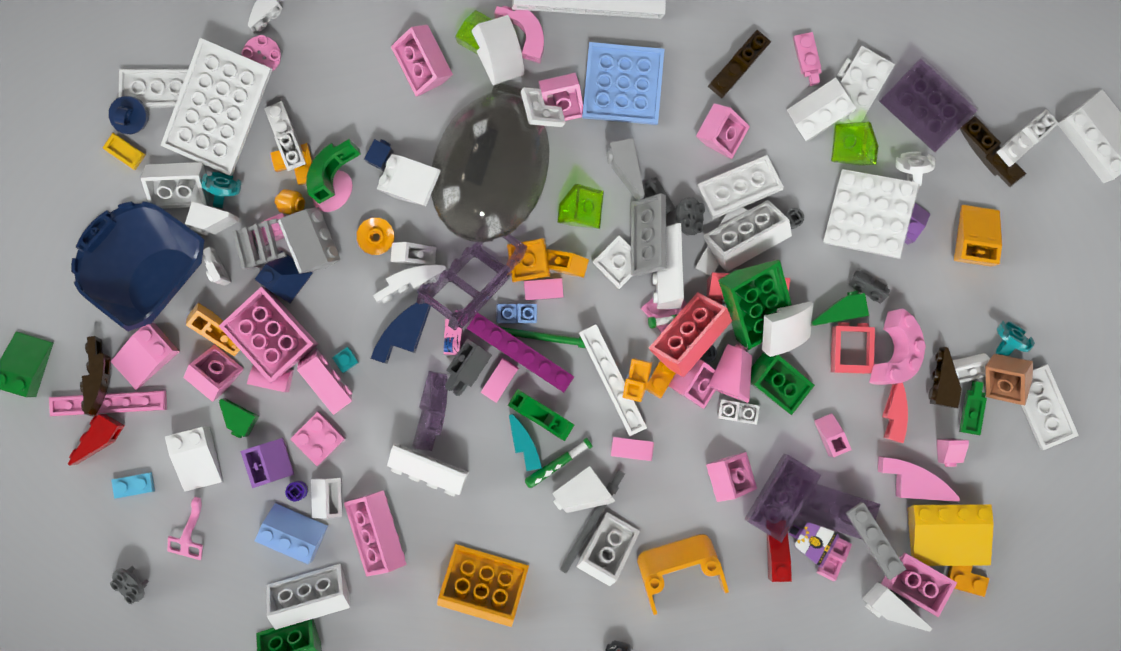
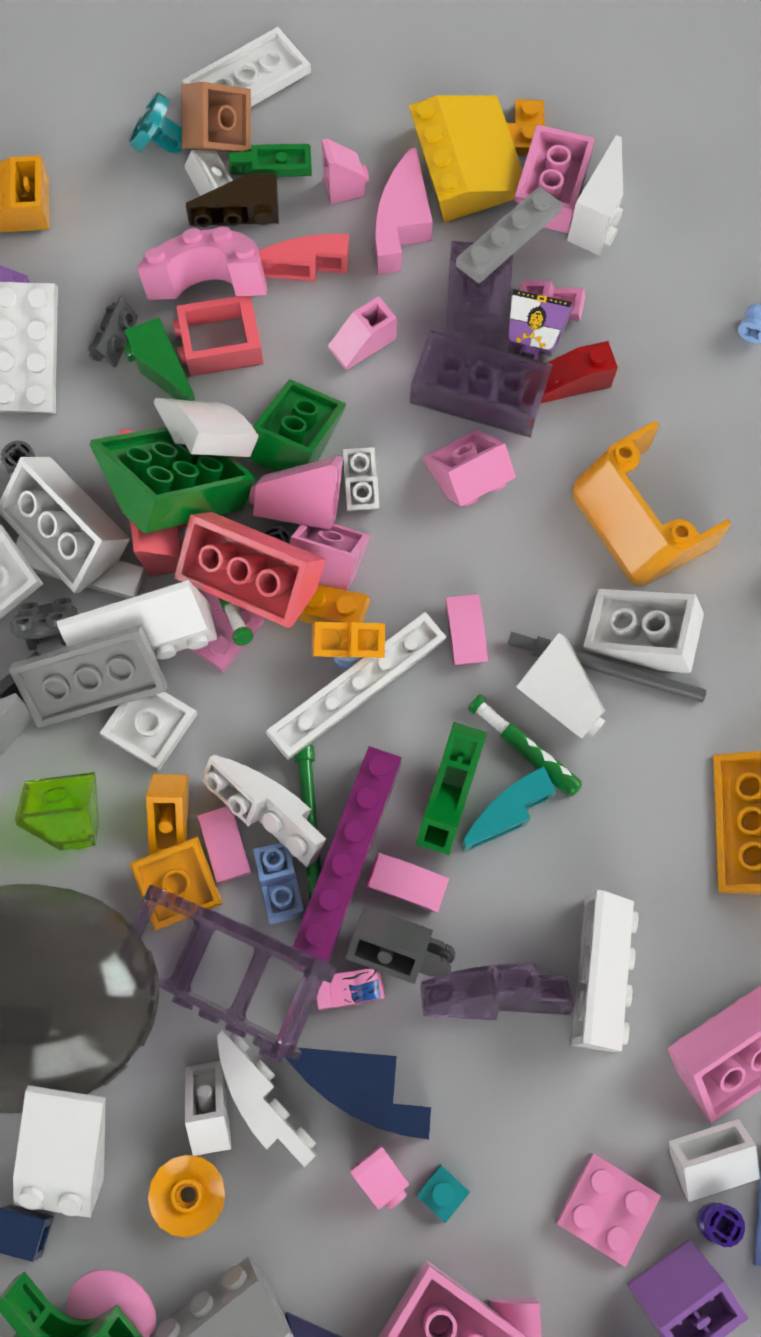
camera: 105 degrees left, 15 degrees down
(324, 381) = (495, 1224): bright pink wedge -> none
(359, 330) = (380, 1178): none -> bright pink slope
(563, 311) = (261, 799): none -> white slope

